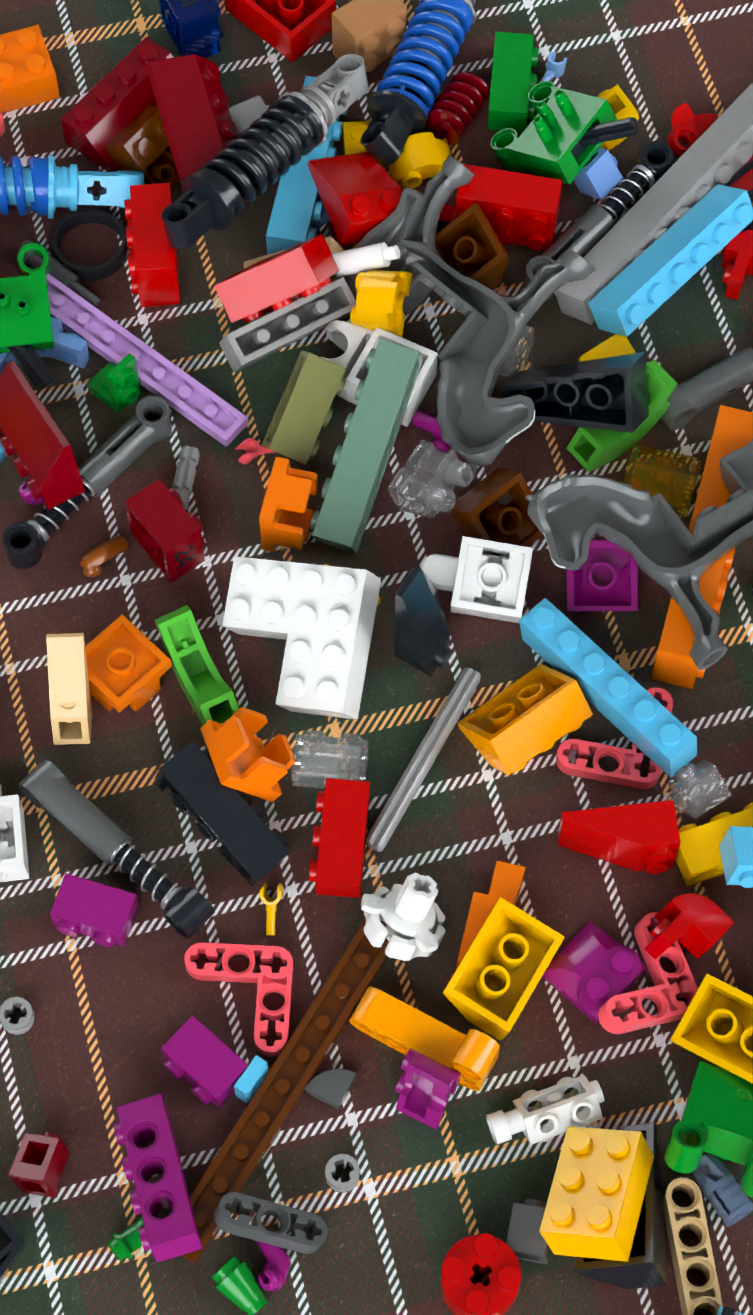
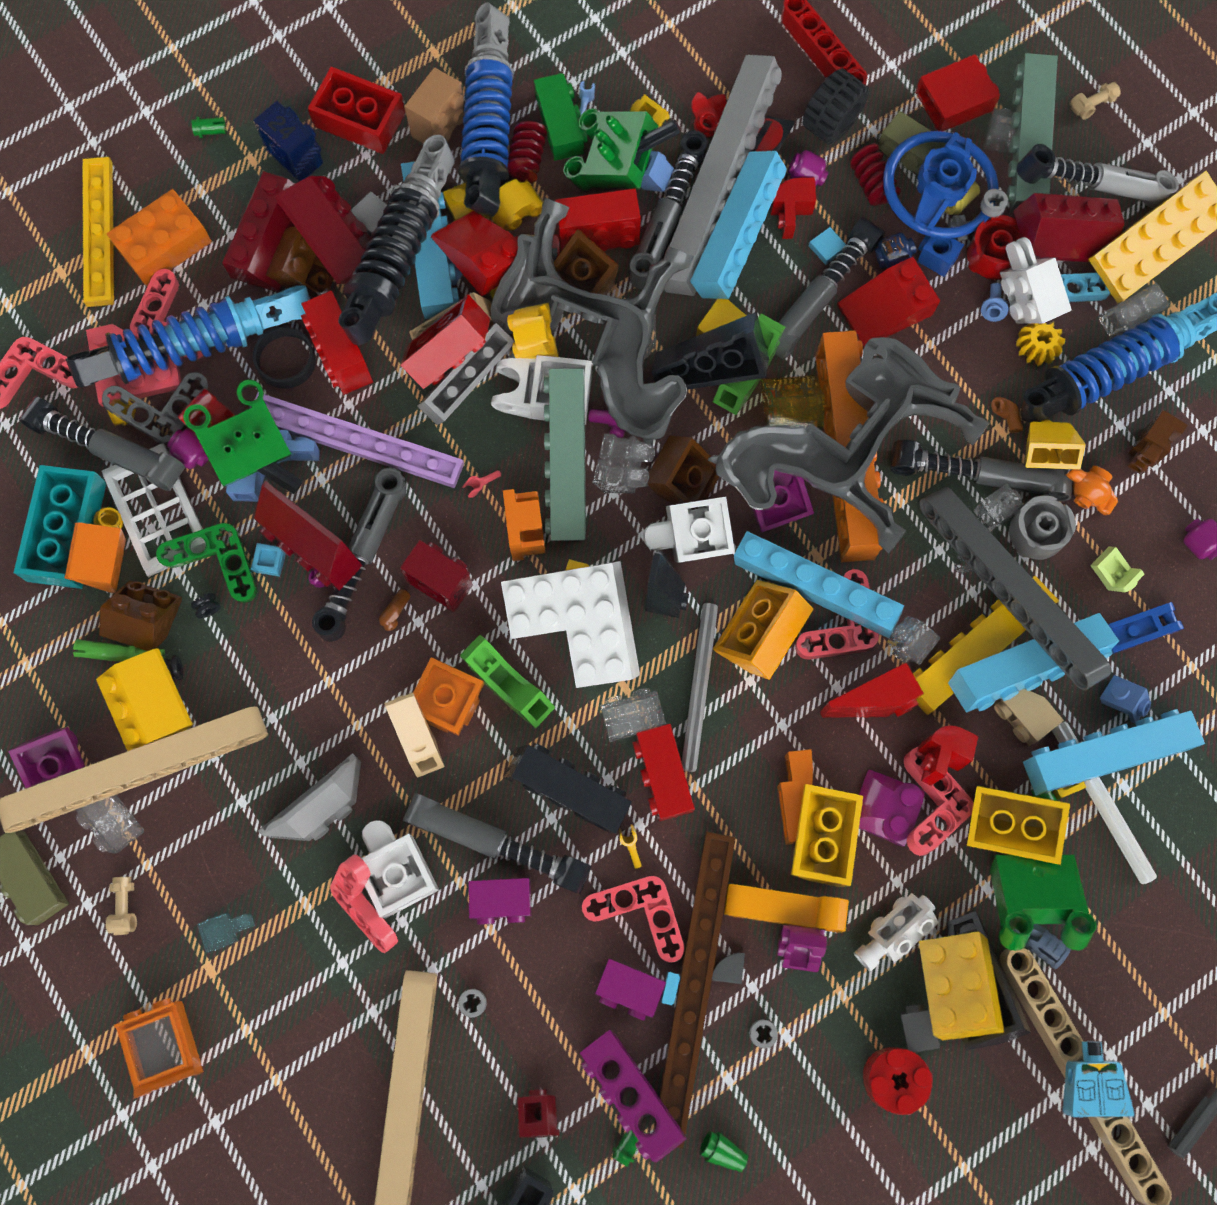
camera: 20 degrees left, 10 degrees up
(63, 275) = (269, 388): dark grey axle -> none
(117, 384) = (350, 468): green bracket -> none
(186, 473) = (432, 521): light grey axle -> none
(242, 758) = (571, 742): orange panel -> none
(246, 1204) = (705, 1092): dark grey beam -> none
(275, 1268) = (741, 1123): magenta arm -> none
(304, 407) = (506, 439): olive brick -> none
(365, 258) = (507, 302): white cylinder -> none
(410, 916) = (741, 819): white piece -> none

